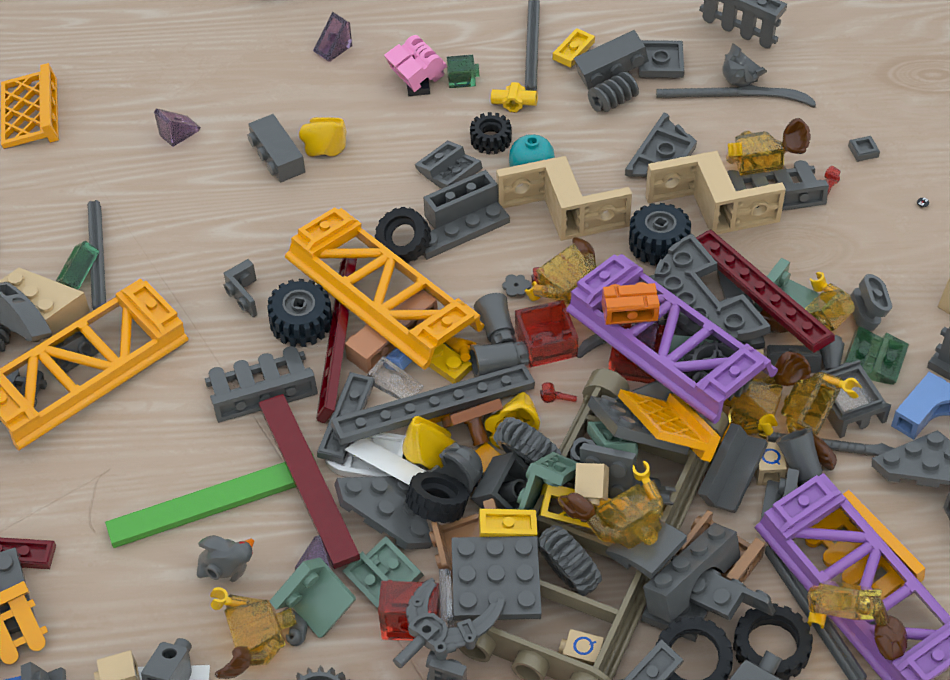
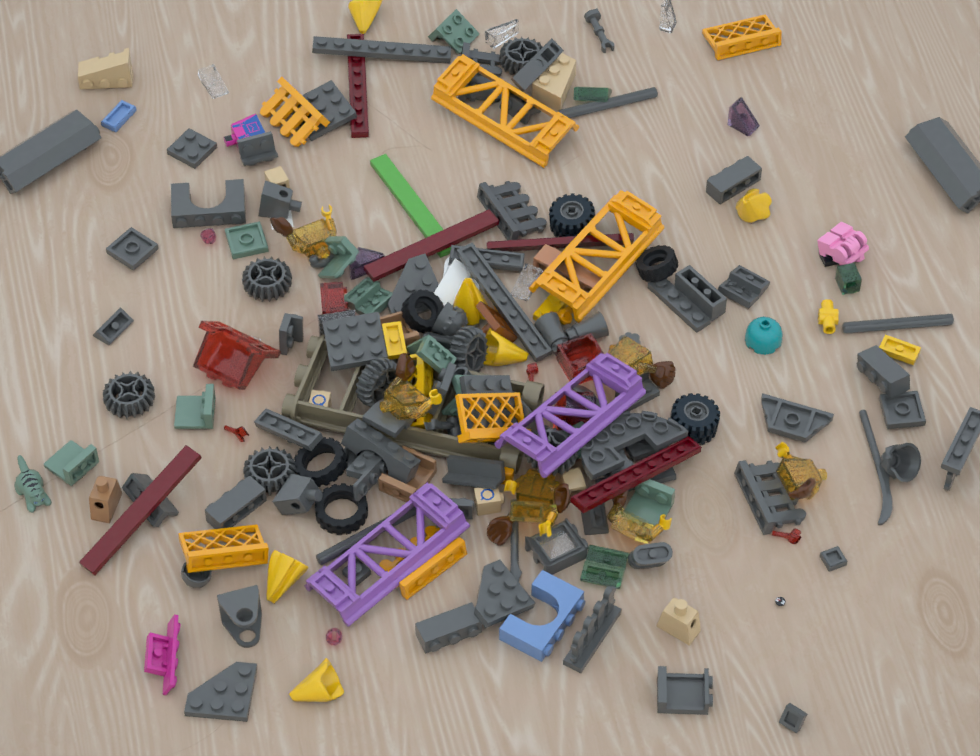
camera: 80 degrees right, 0 degrees up
(223, 557) = (358, 210): dark grey animal -> none
(235, 281) = (595, 178): dark grey bracket -> none
(334, 38) = (863, 195): clear purple slope -> none
(433, 631) = (306, 309): dark grey bar -> none
(490, 124) = (784, 314): black tyre -> none
(570, 211) = (714, 351): tan bracket -> none
(592, 482) = (422, 371): tan brick -> none
(613, 92) = (849, 381): dark grey piece -> none
(630, 303) = (585, 380): orange brick -> none
(718, 201) = (747, 443): tan bracket -> none
(801, 454) = (489, 508): dark grey plant -> none
(832, 353) = (599, 536): dark grey cone -> none
(858, 603) = (355, 526): clear yellow torso -> none

